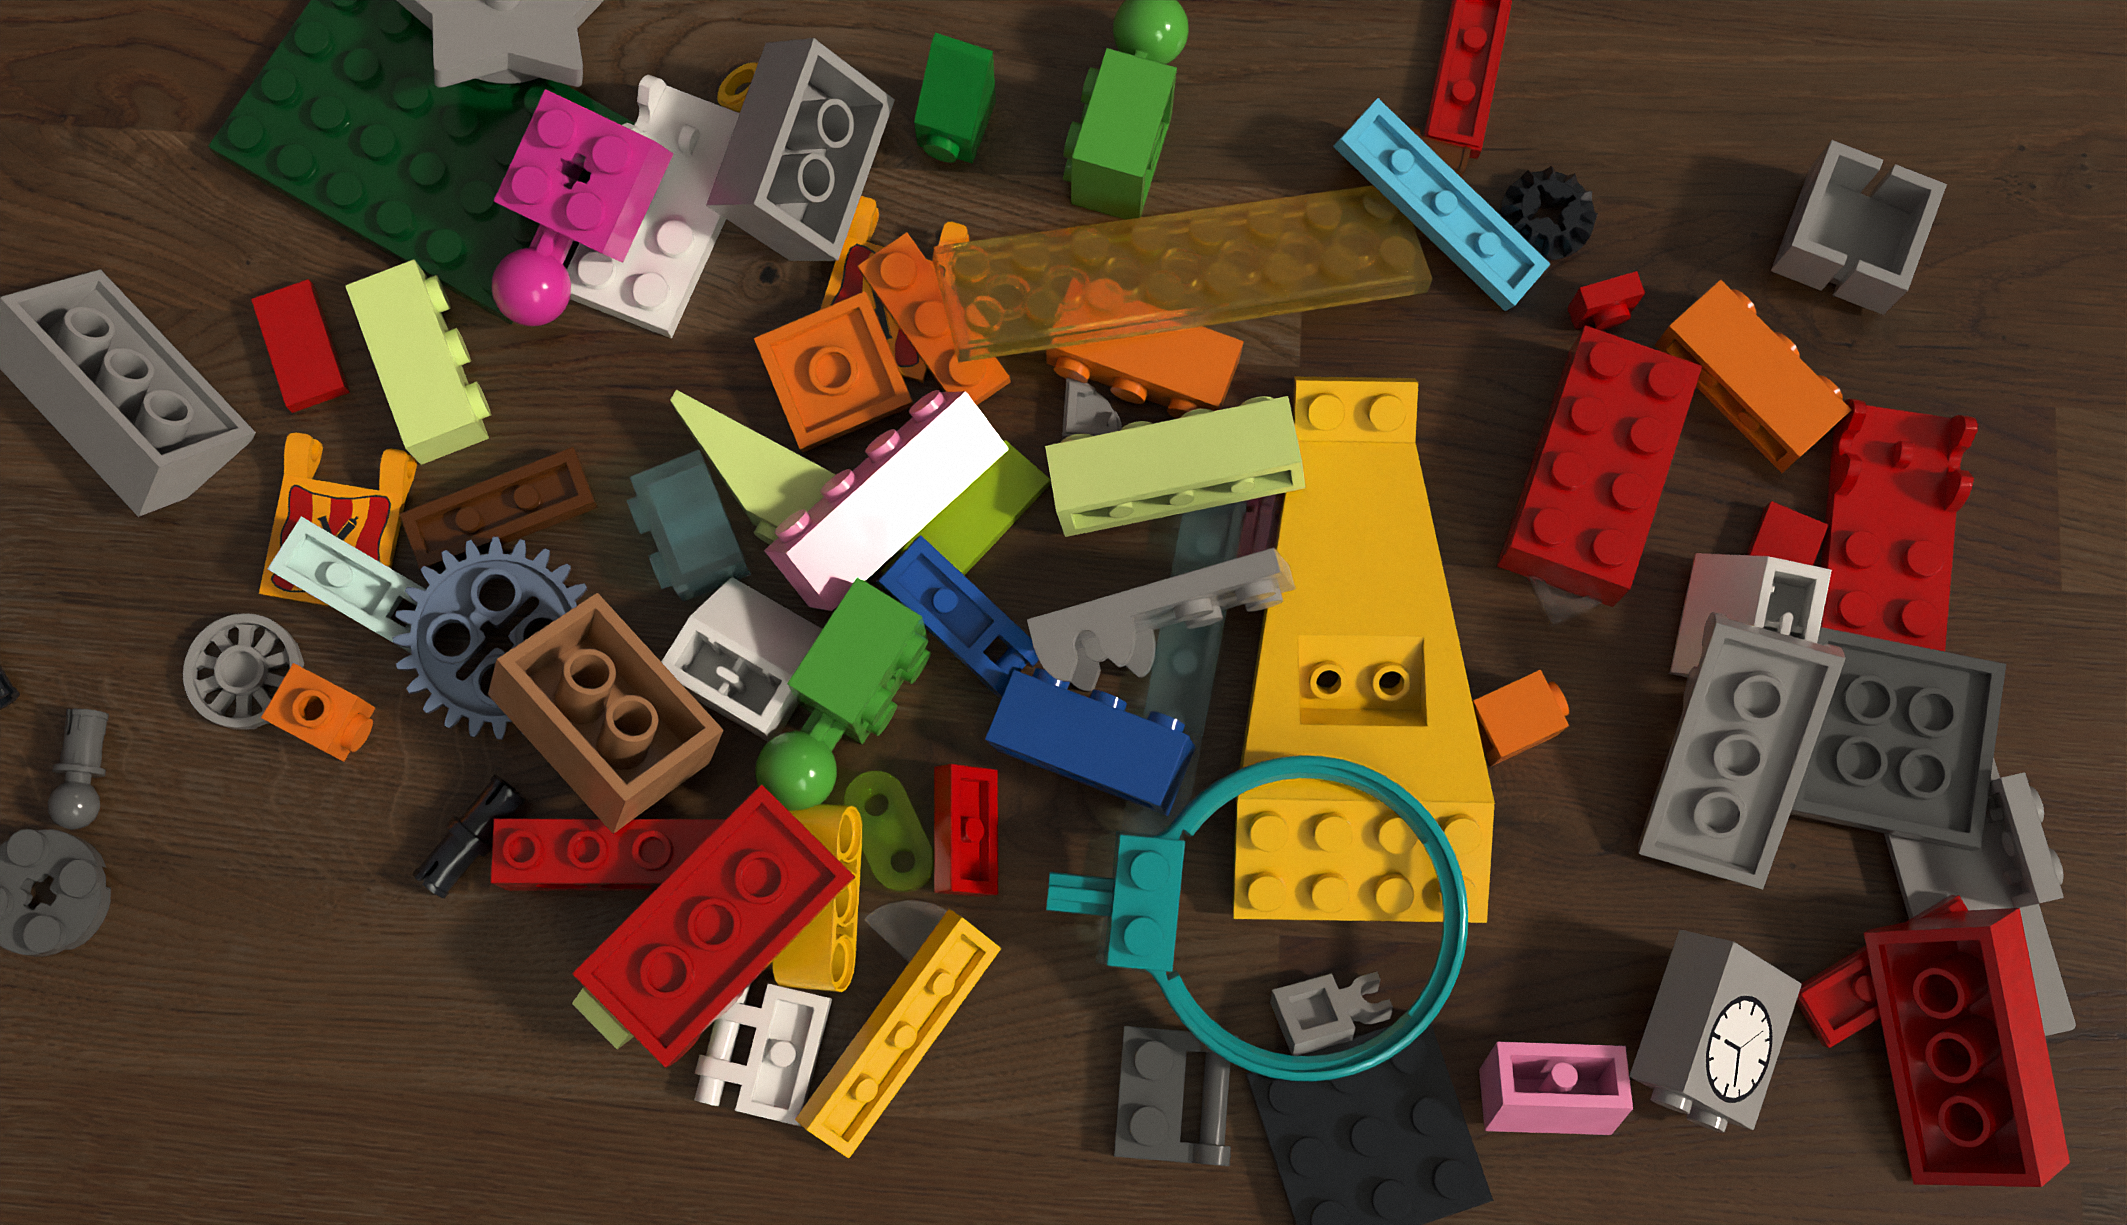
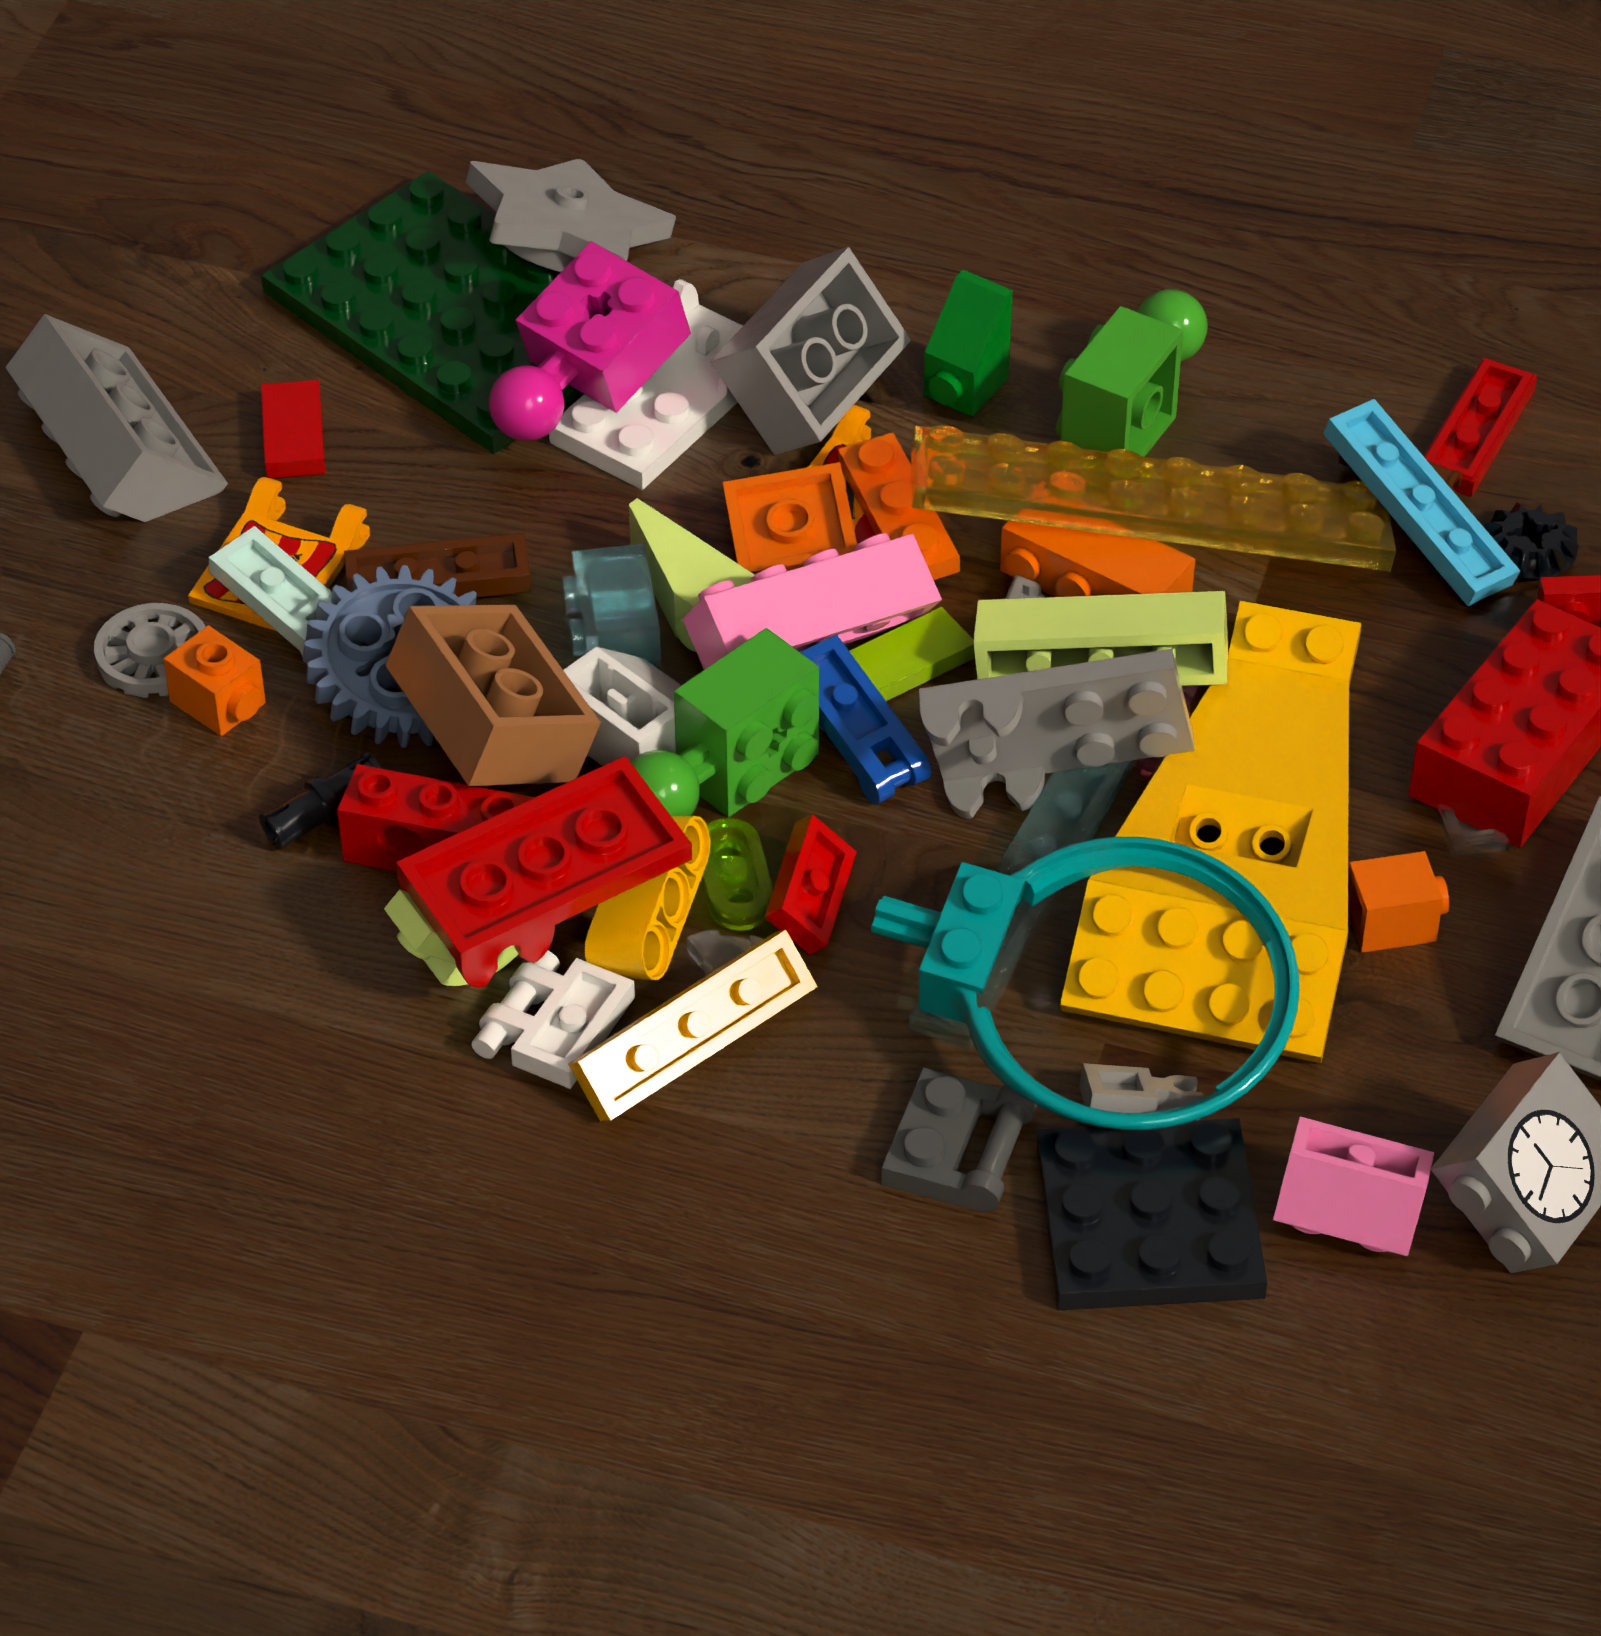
camera: 15 degrees right, 30 degrees down
(419, 361) = (403, 452): yellowish green brick -> none
(1092, 740) = (940, 821): blue brick -> none

